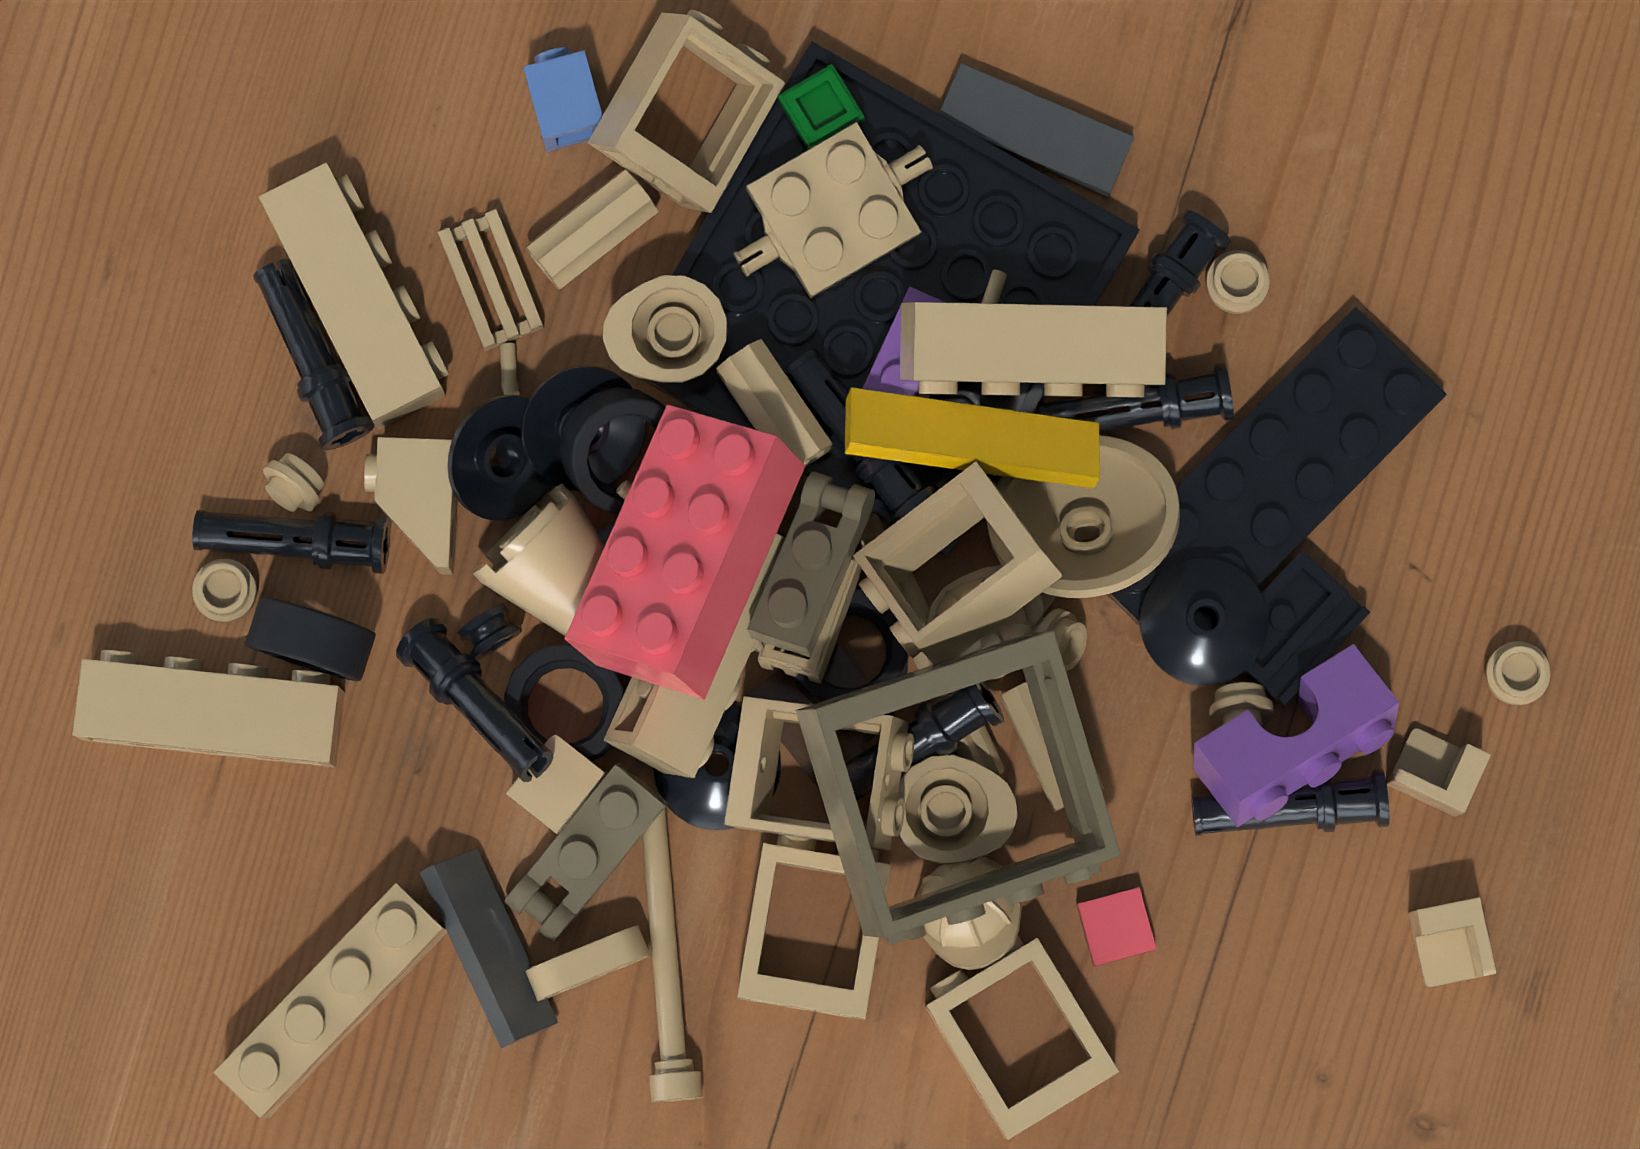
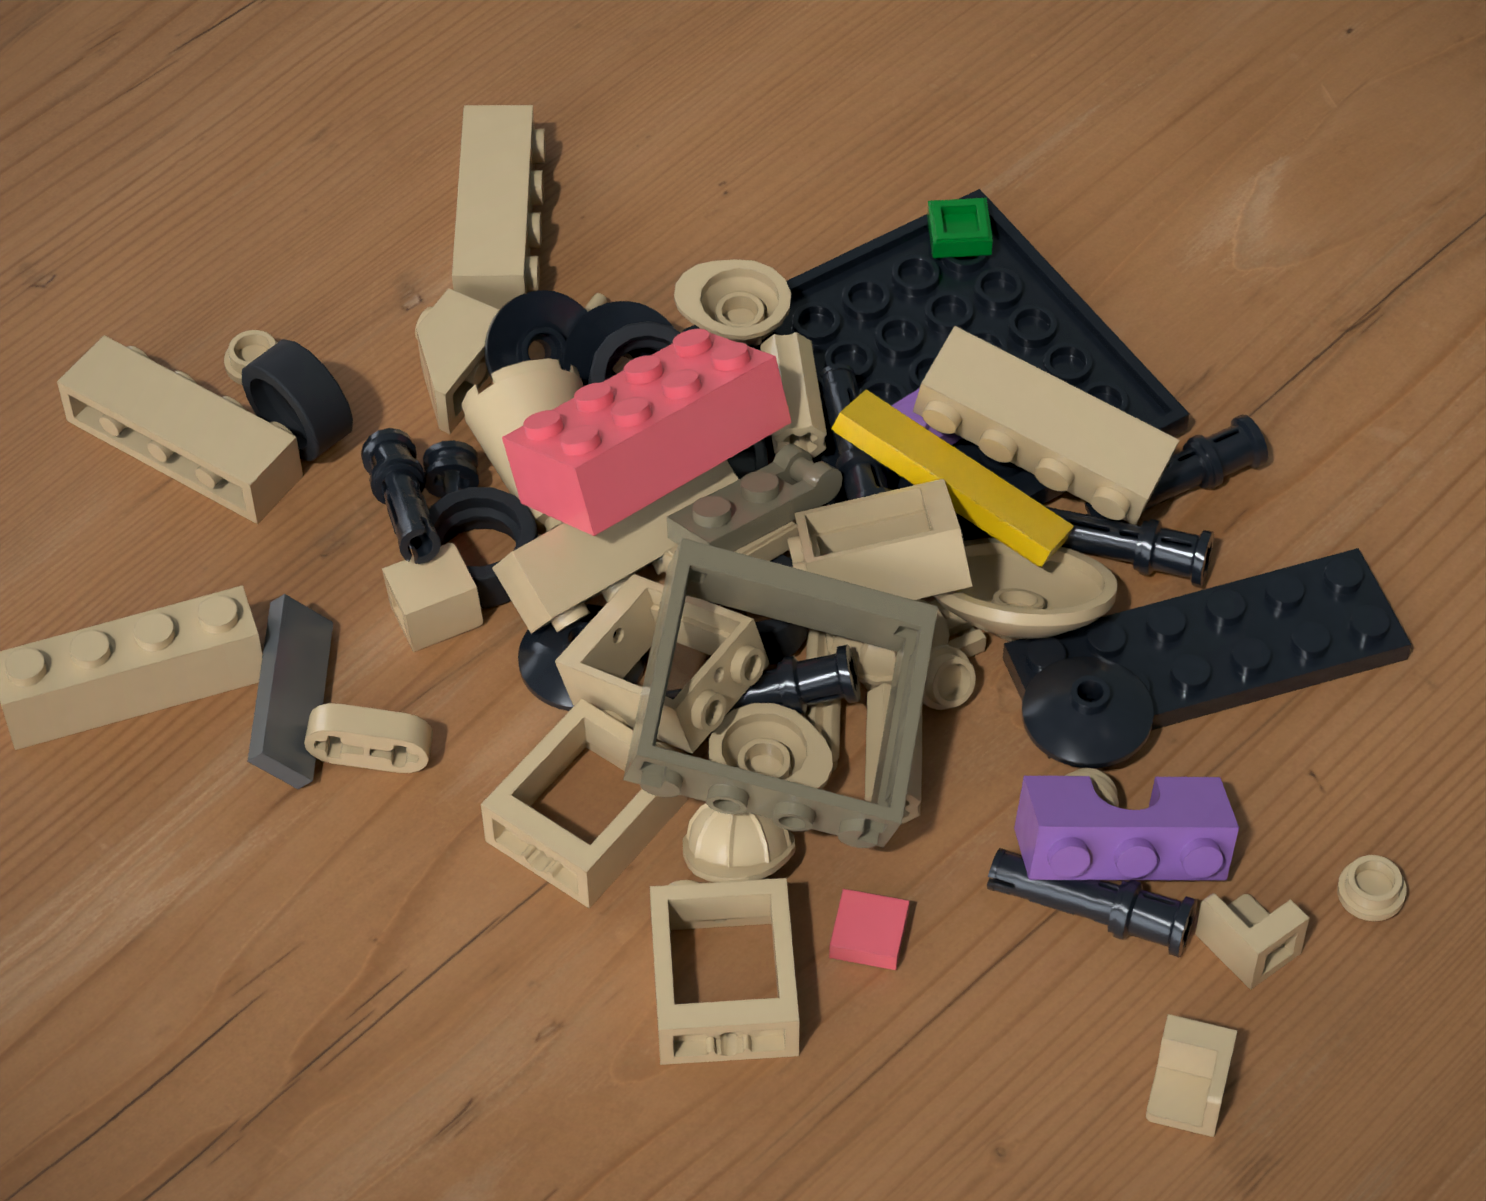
camera: 30 degrees right, 30 degrees down
(216, 530) = (357, 355): black pin -> none
(293, 483) = (361, 308): tan plate -> none
(322, 380) = (432, 251): black pin -> none
(471, 230) = (618, 217): tan tile -> none
(563, 97) = (751, 154): medium blue brick -> none
(588, 850) = (425, 656): dark tan plate -> none
(591, 229) = (726, 236): tan axle -> none
(674, 1073) = (386, 864): tan piece -> none
(731, 134) = (799, 207): tan window -> none
(833, 210) = (924, 288): tan plate -> none
(1037, 130) = (1147, 329): dark grey tile -> none
(1237, 281) = (1259, 491): tan plate -> none
(1305, 626) = (1180, 744): black plate -> none

